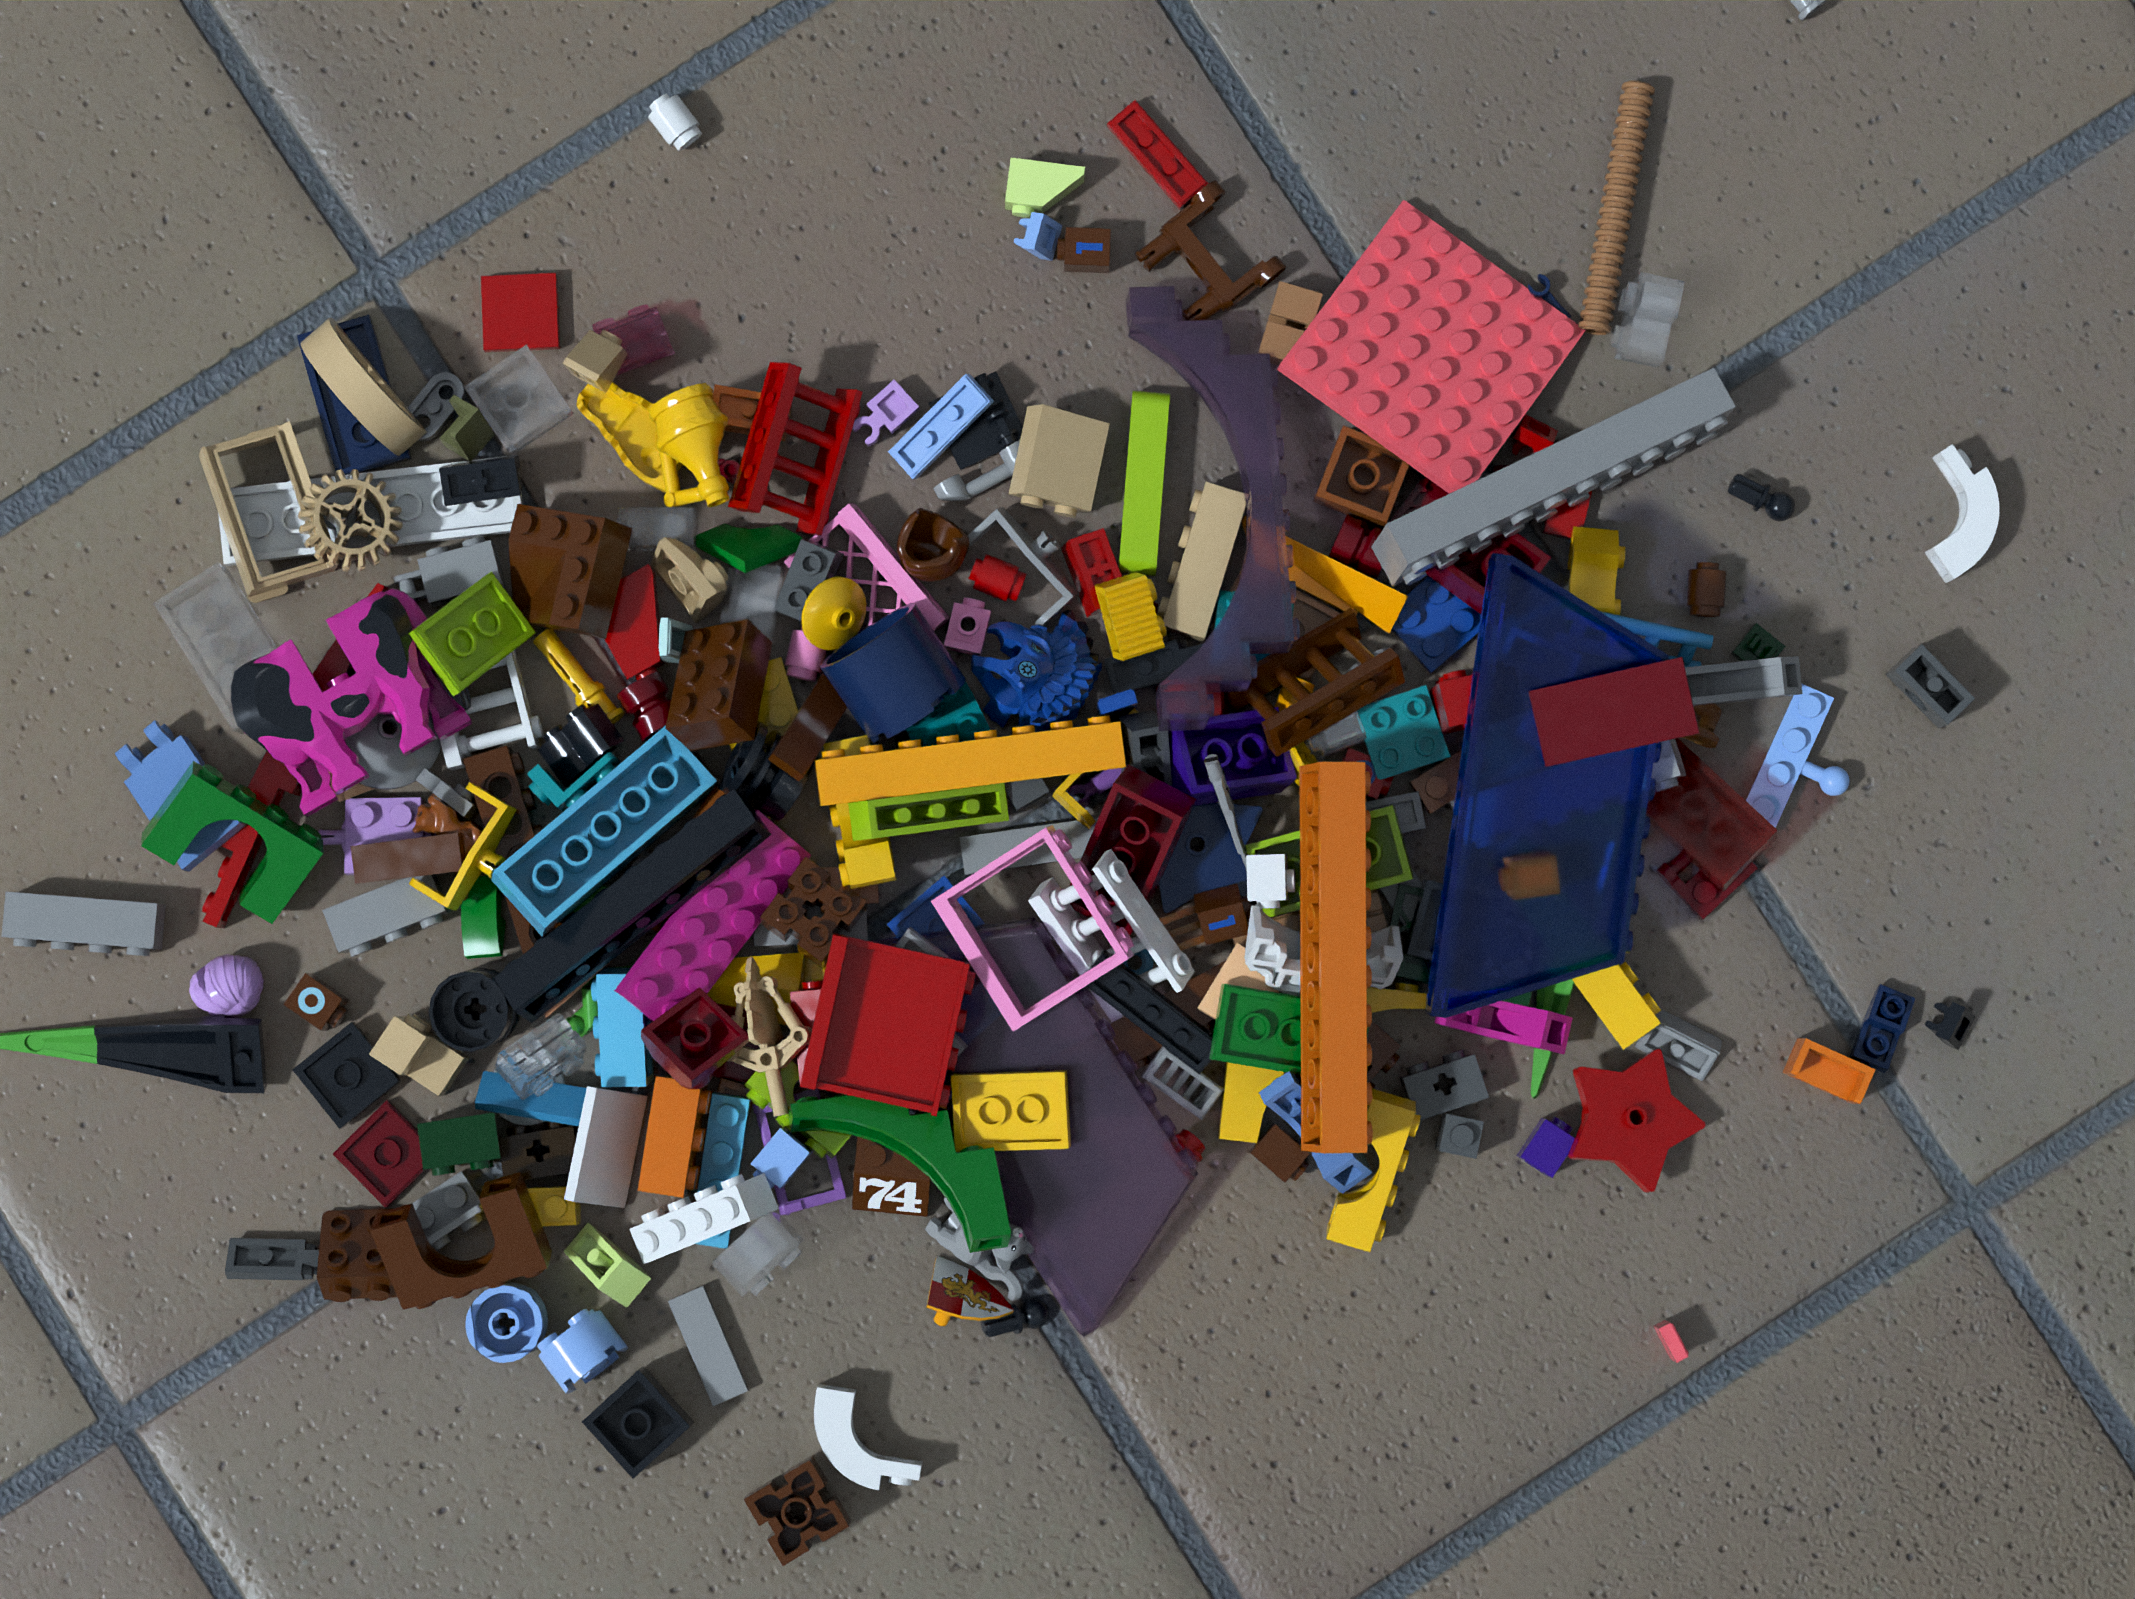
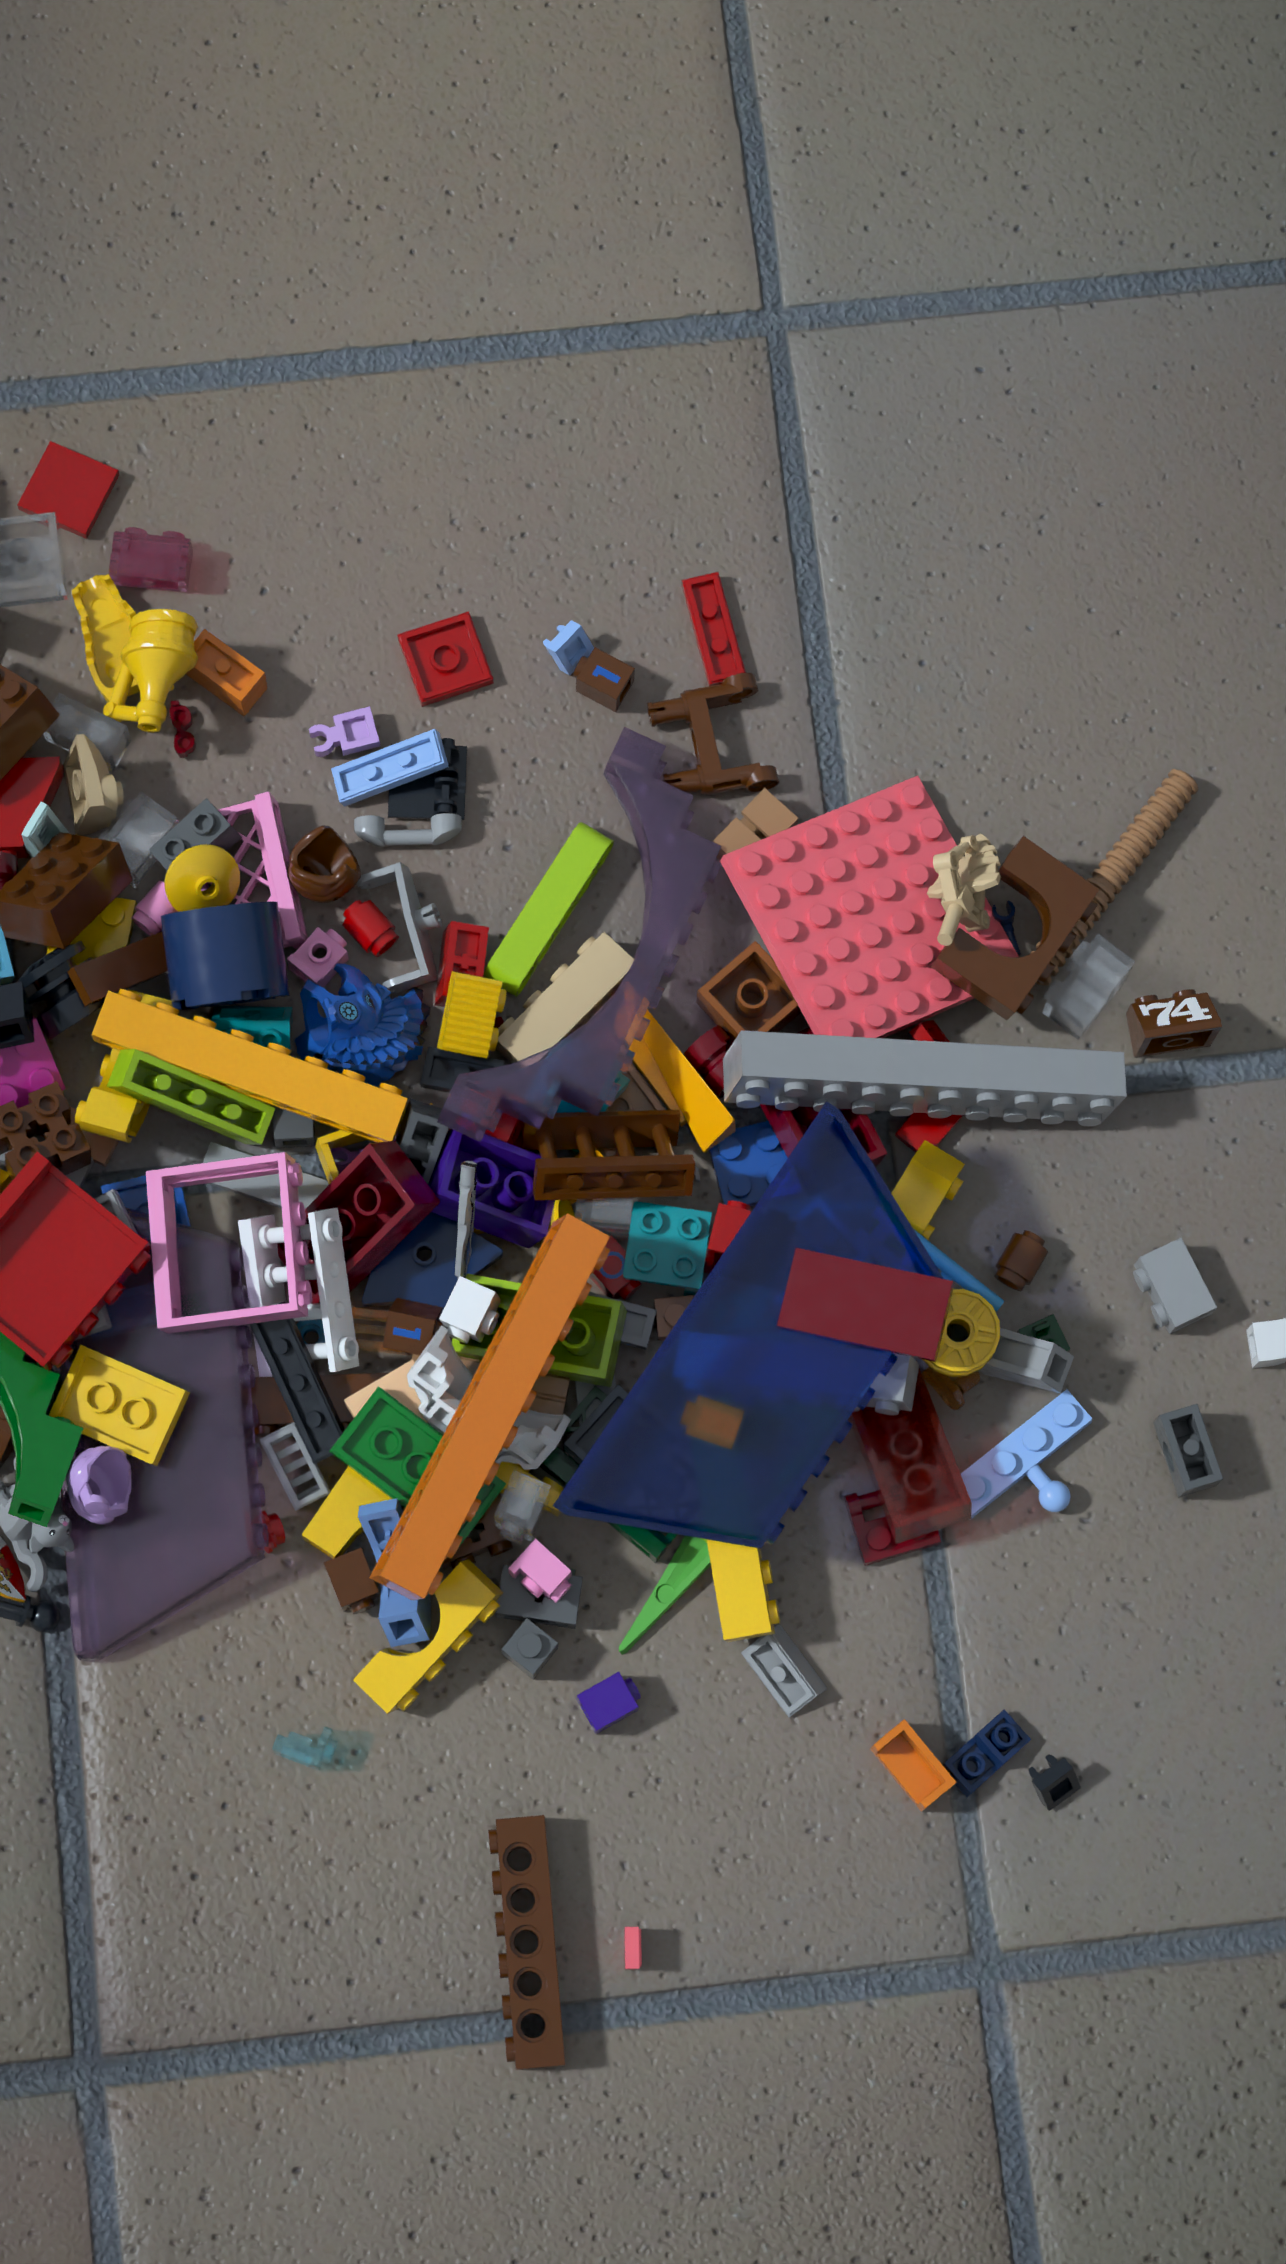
camera: 25 degrees right, 10 degrees down
(596, 359) = (108, 552): tan slope -> none
(674, 121) = (294, 392): white brick -> none
(746, 547) = (155, 786): green tile -> none
(764, 439) = (212, 707): red fence -> none
(935, 300) = (445, 659): none -> red tile
(1032, 1187) = (99, 1484): none -> lavender hair
(1039, 185) = (592, 602): yellowish green slope -> none
(1058, 460) = (480, 847): tan brick -> none
(1117, 704) = (418, 1087): blue tile -> none
(1307, 1317) = (298, 1748): none -> clear light blue bracket
(1400, 1026) = (522, 1507): none -> clear brick
(1442, 1070) = (542, 1572): none -> bright pink brick
(1497, 281) = (962, 884): none -> tan bar
(1515, 1025) = (628, 1564): dark pink arch -> none
(1593, 258) = (1061, 901): none -> reddish brown arch
(1606, 1123) = (673, 1721): red plate -> none
(1643, 1458) = (530, 1835): none -> reddish brown brick
(1715, 680) = (983, 1331): none -> yellow wheel
(1735, 313) = (1172, 1023): none -> reddish brown slope
(1778, 505) = (1127, 1216): black axle -> none
(1848, 547) = (1174, 1286): none -> light grey brick

